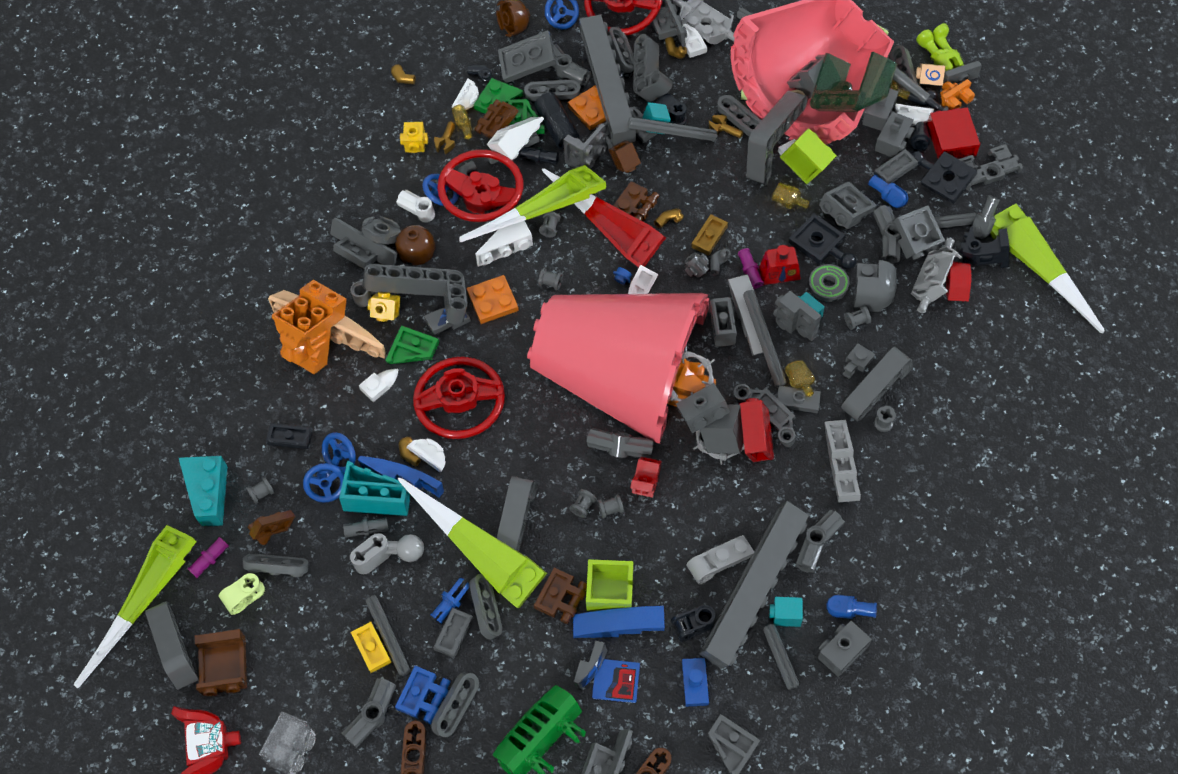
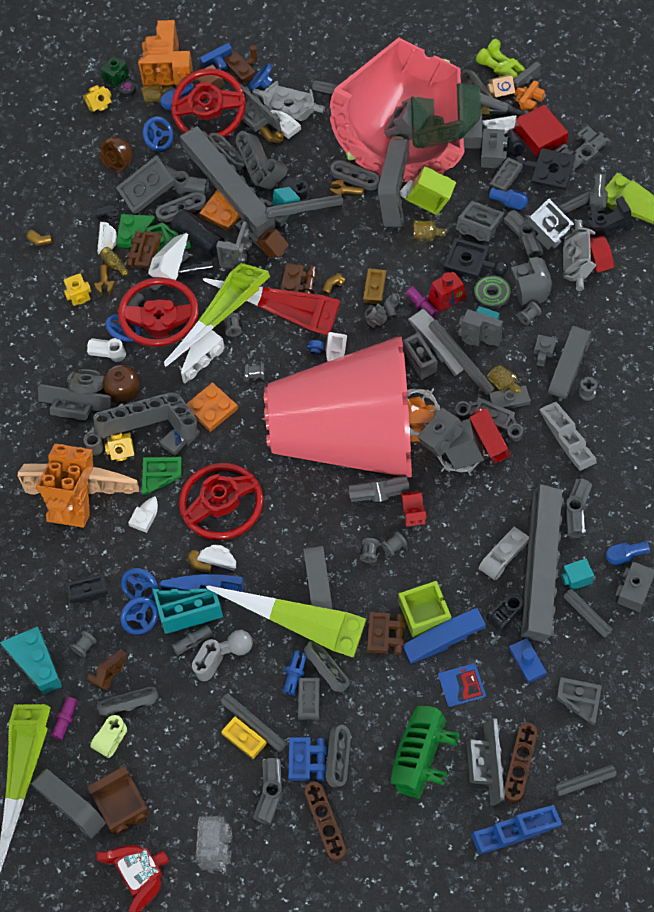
camera: 20 degrees left, 0 degrees up
(587, 670) = (436, 683): dark grey slope -> none

